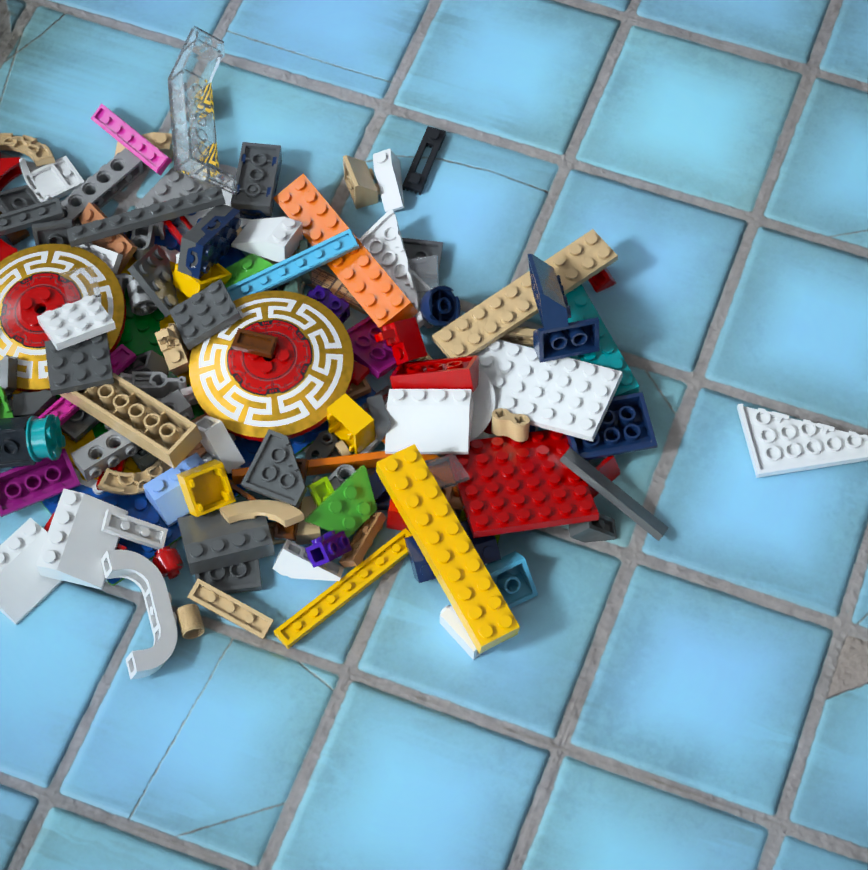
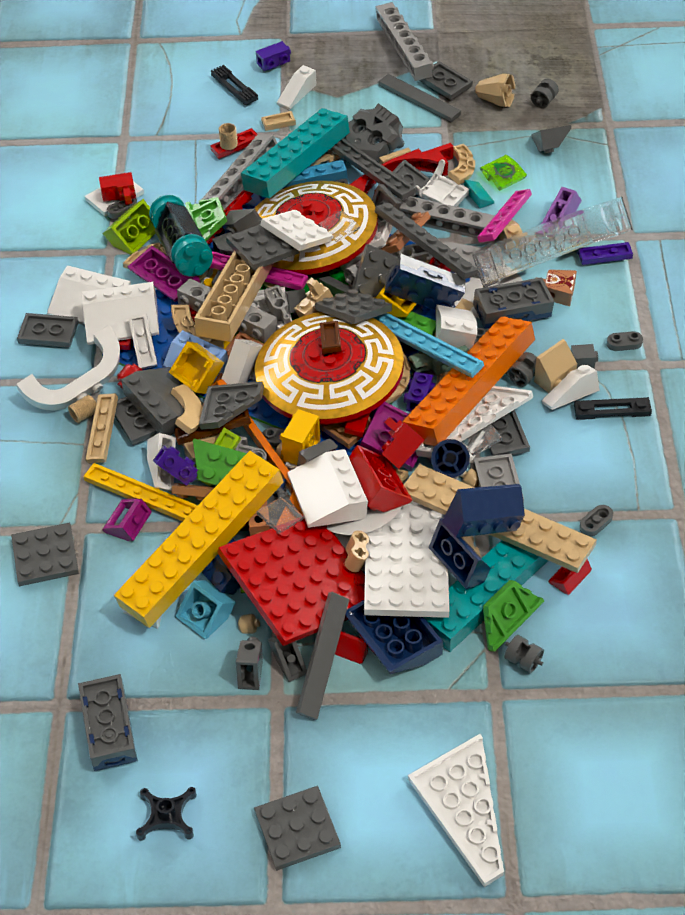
camera: 70 degrees right, 10 degrees down
(32, 54) = (549, 139): none -> dark grey slope
(47, 628) = (47, 330): none -> dark grey plate
(55, 116) = (503, 172): none -> clear neon green slope
(74, 152) = (478, 194): none -> teal slope
(145, 326) = (334, 285): none -> dark grey slope
(148, 93) = (564, 203): none -> medium lavender slope
(225, 79) = (605, 253): none -> dark purple plate
(249, 130) = (561, 285): none -> nougat torso
(345, 207) = (523, 369): none -> dark grey wheel
(346, 111) = (624, 341): none -> dark grey plate
(354, 149) = (585, 355): none -> dark grey brick
(368, 613) = (131, 523): none -> magenta tile
(368, 713) = (44, 554): none -> dark grey plate
(469, 282) = (496, 470): none -> light grey plate
(536, 551) = (248, 624): none -> tan piece
(551, 228) = (594, 520): none -> dark grey plate
(591, 559) = (249, 654): none -> dark grey torso
(608, 702) = (107, 722): none -> dark grey piece
(625, 335) = (507, 612): none -> bright green wing
(670, 339) = (524, 653): none -> dark grey wheel
(720, 681) = (166, 813): none -> black piece
(771, 580) = (297, 828): none -> dark grey plate

